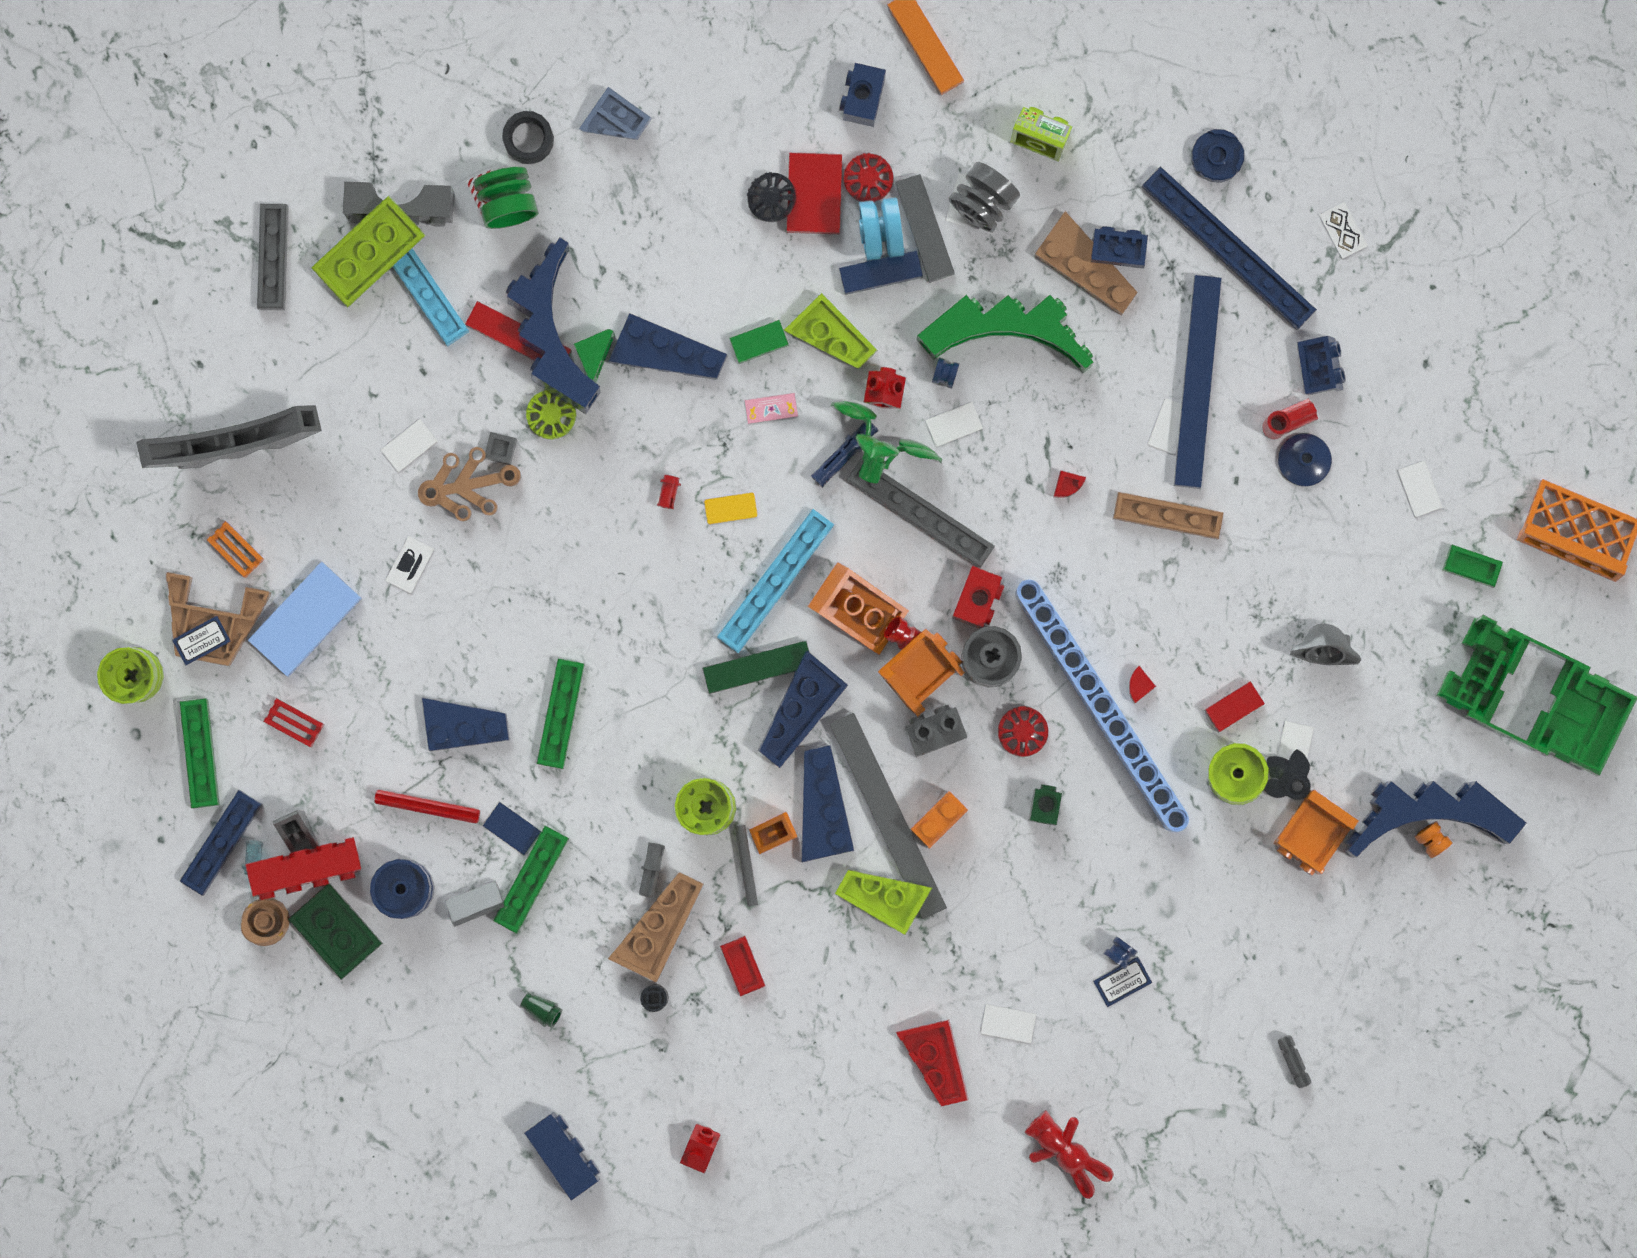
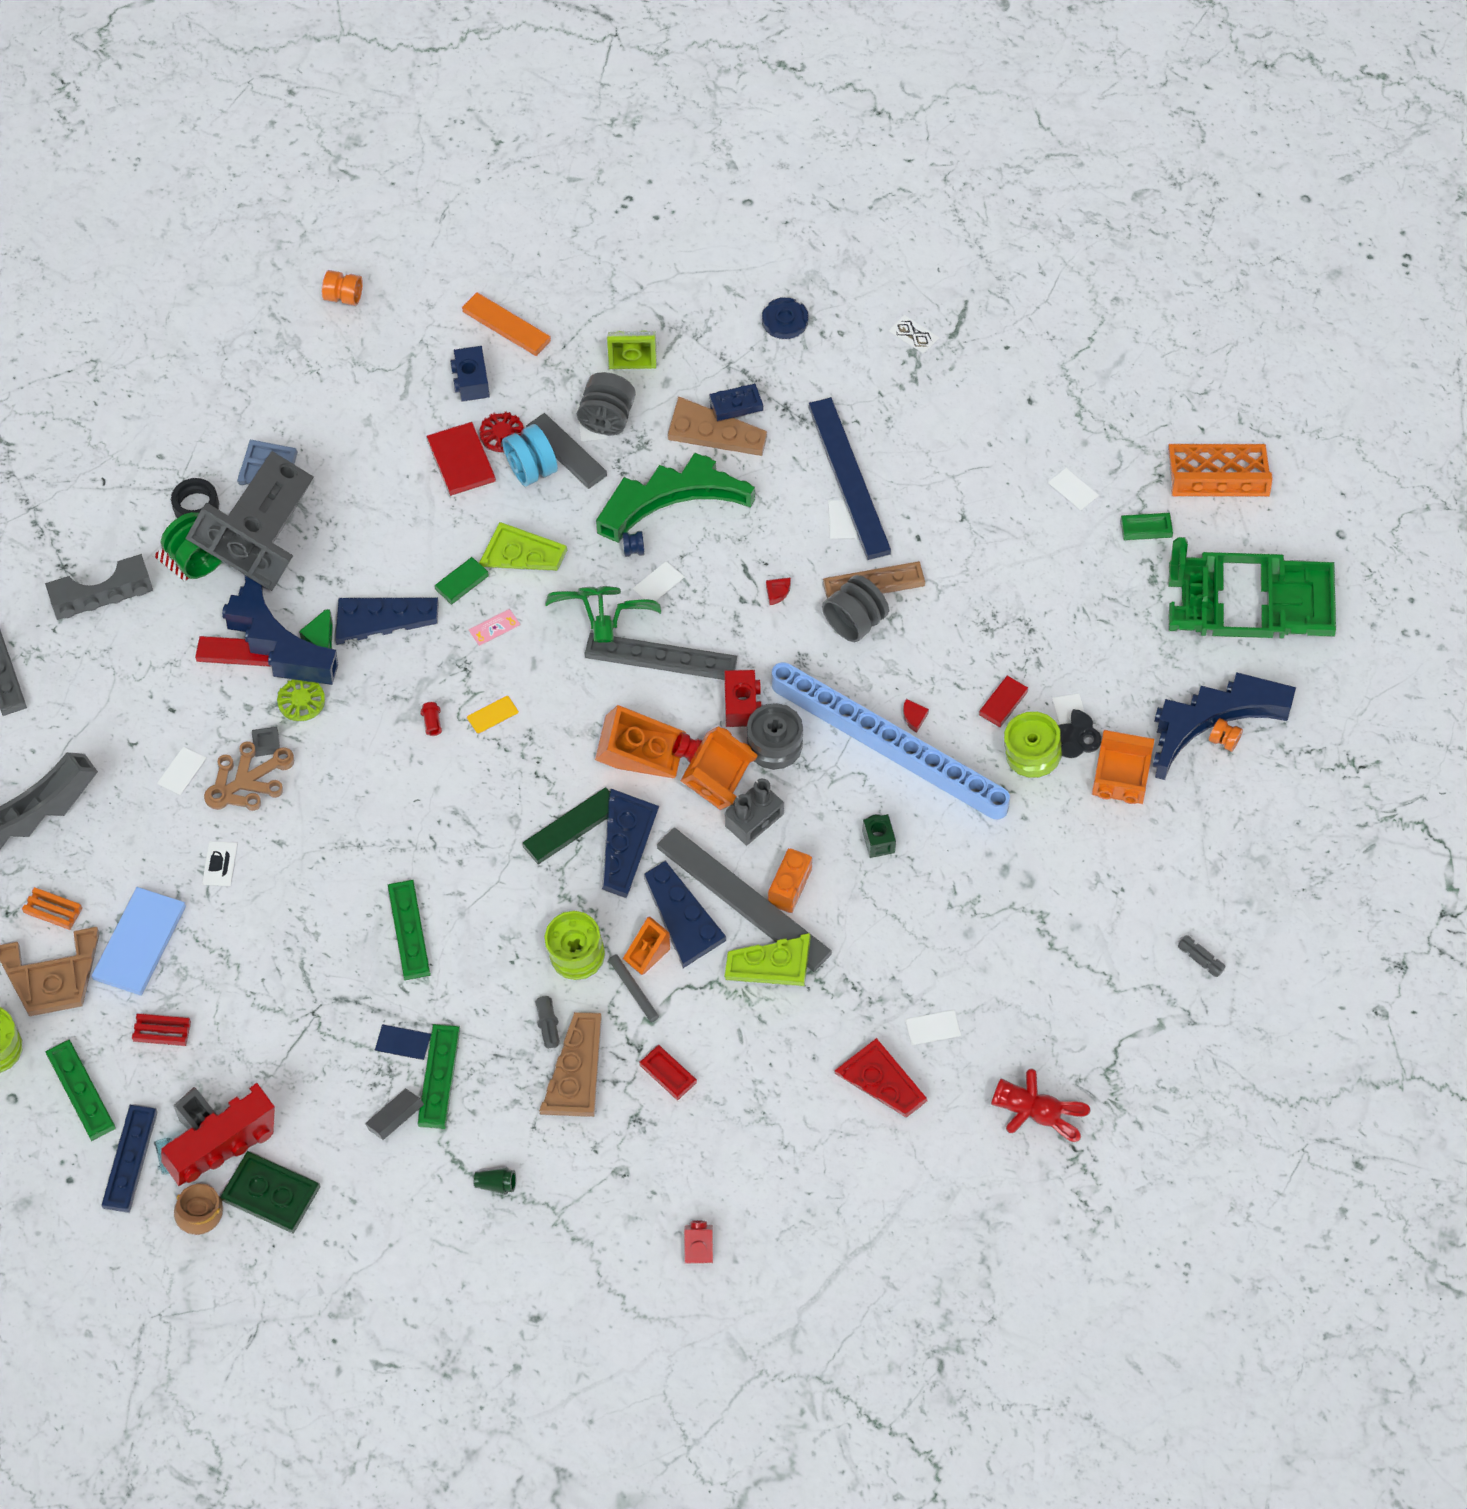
camera: 25 degrees left, 25 degrees down
(201, 640) = (47, 989): sticker -> none
(368, 251) = (86, 629): lime tile -> none
(418, 892) = (320, 1123): dark blue wheel -> none
(427, 806) = (315, 1051): red axle -> none
(430, 298) = (153, 649): medium azure tile -> none
(462, 726) = (321, 973): dark blue wing -> none
(563, 1155) = (570, 1298): dark blue brick -> none
(575, 204) = (249, 531): none -> dark grey brick
(657, 994) = (597, 1133): black wheel -> none
(771, 197) = (425, 472): black wheel -> none
(775, 581) = (557, 754): medium azure tile -> none
(841, 456) = (577, 625): dark blue pin -> none
(880, 273) = (543, 494): dark blue tile -> none
(884, 388) = (586, 570): red brick -> none
(1023, 731) = (830, 788): red wheel -> none
(1120, 952) = (1003, 925): dark blue wheel -> none
(1122, 982) = (1017, 953): sticker -> none
(1134, 548) = (855, 608): none -> dark grey wheel
(1229, 248) = (827, 377): dark blue tile -> none
(1290, 418) = (937, 475): red piece -> none
(1294, 468) = (964, 509): dark blue dish -> none
(1321, 365) = (943, 428): dark blue bracket -> none
(1326, 646) = (1058, 626): dark grey hat -> none

